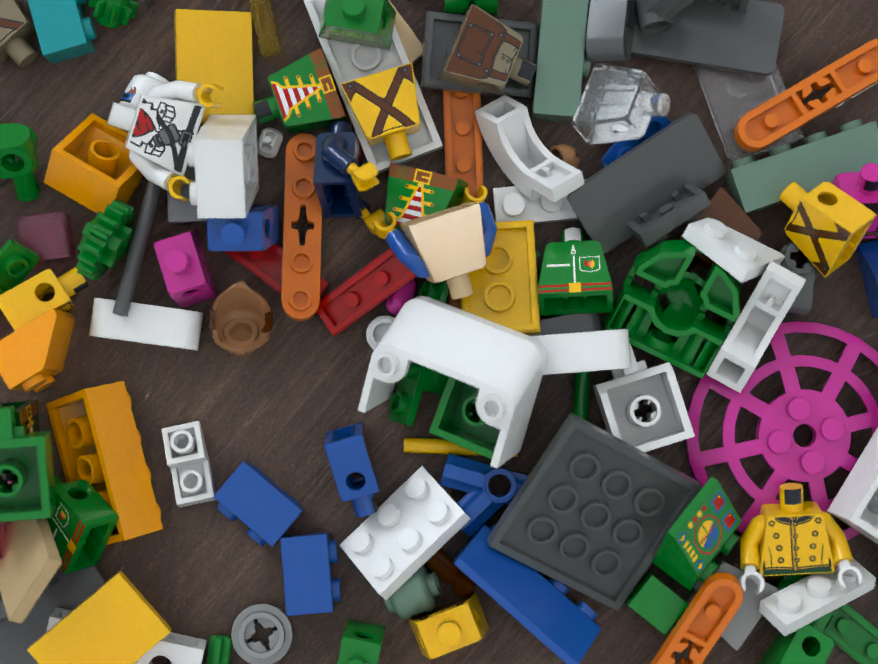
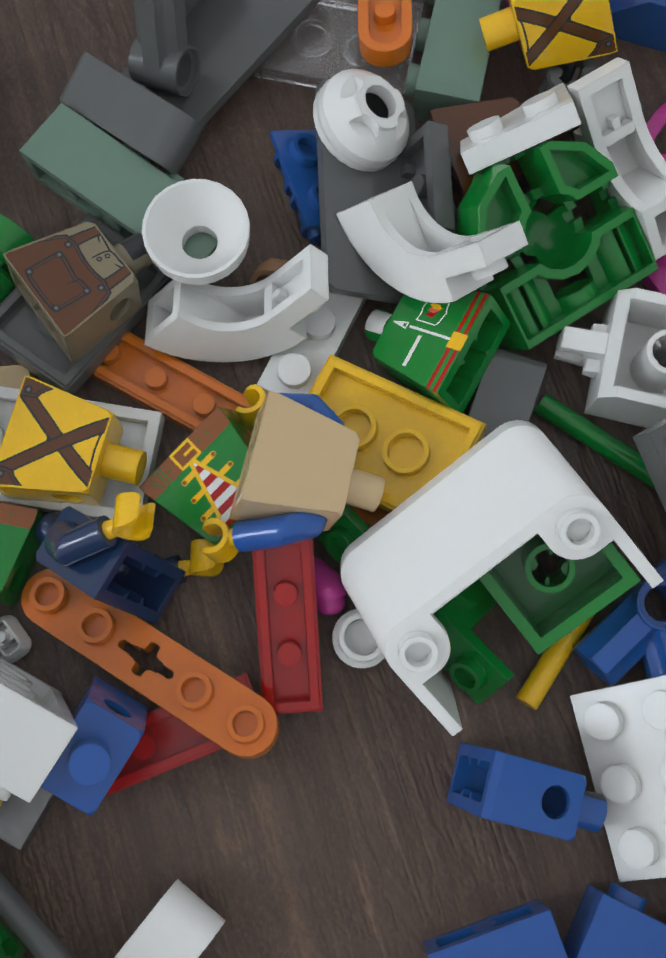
camera: 65 degrees left, 10 degrees down
(185, 268) = (95, 867): dark pink torso -> none
(240, 320) = (221, 830): medium nougat hair -> none
(559, 84) = (190, 209): none -> white piece
(586, 351) = (552, 375): white beam -> none
(617, 234) = (421, 256): none -> white arch
(618, 105) = (256, 159): clear torso -> none
(673, 143) = (352, 129): none -> white piece

